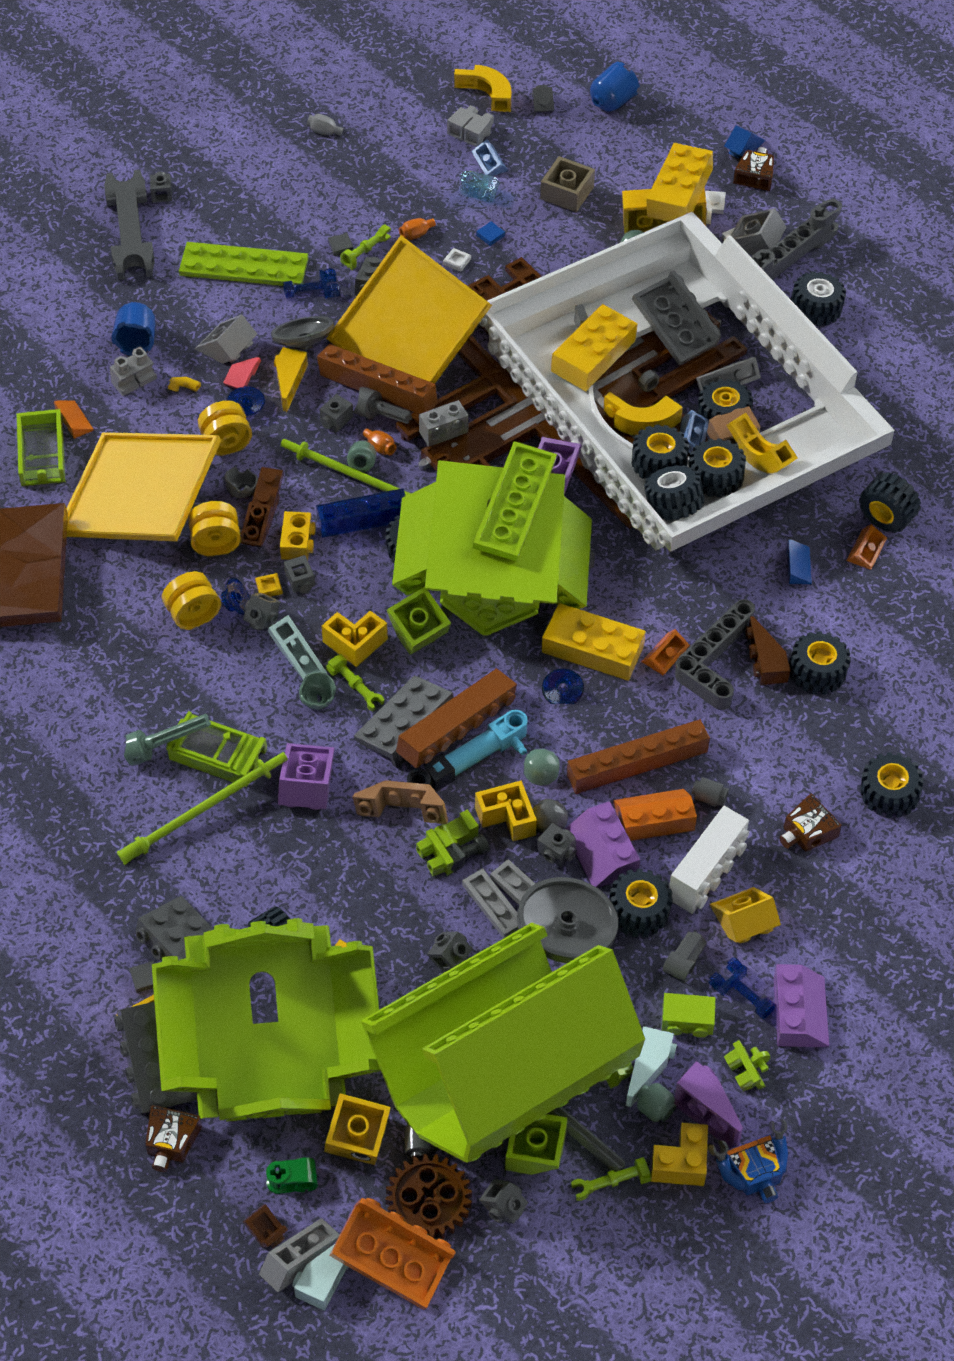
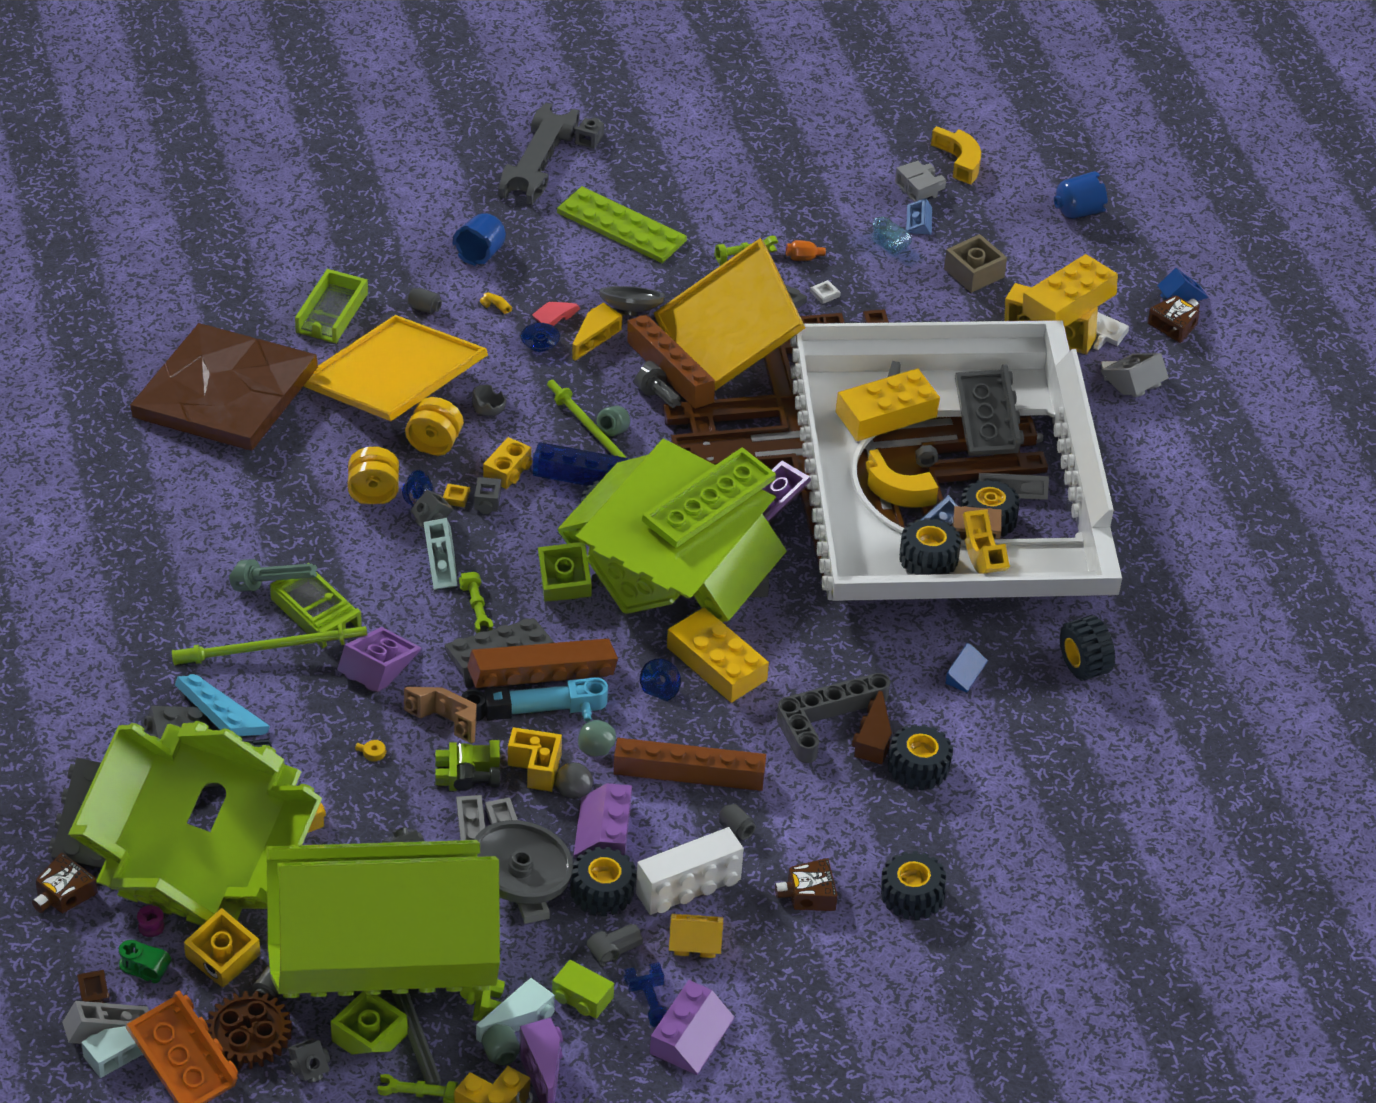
camera: 25 degrees right, 10 degrees down
(73, 418) = (378, 293): orange slope -> none
(120, 407) = (424, 300): none -> dark grey brick
(131, 371) = (461, 268): light grey hips -> none
(205, 892) = (219, 707): none -> medium azure wing
(228, 340) = (561, 280): light grey slope -> none
(228, 422) = (505, 347): yellow wheel -> none
(262, 508) = (493, 430): reddish brown slope -> none
(273, 1138) = (155, 925): none -> magenta wheel
(315, 684) = (435, 589): sand green hair -> none
(323, 125) = (779, 133): light grey plant -> none
(325, 277) = (649, 259): clear blue bar -> none
(336, 413) = (616, 377): dark grey brick -> none
(340, 243) = (723, 237): dark grey tile -> none
(352, 868) = (372, 750): none -> yellow piece
(355, 640) = (501, 567): yellow brick -> none
(381, 441) = (641, 416): orange plant -> none
(443, 423) = (703, 418): light grey brick -> none
(490, 233) = (873, 281): blue tile -> none
(543, 99) = (1008, 183): dark grey bracket -> none
(557, 845) = (561, 804): dark grey brick -> none
(656, 814) = (670, 819): orange slope -> none
(657, 449) = (882, 515): black wheel -> none
(666, 652) = (773, 693): orange slope -> none
(674, 492) = (869, 551): black wheel -> none
(740, 1057) = (611, 1051): lime hips -> none
(809, 235) = (1190, 391): dark grey piece -> none
(819, 297) = (1152, 450): black wheel -> none
(867, 547) = (1045, 683): orange slope -> none

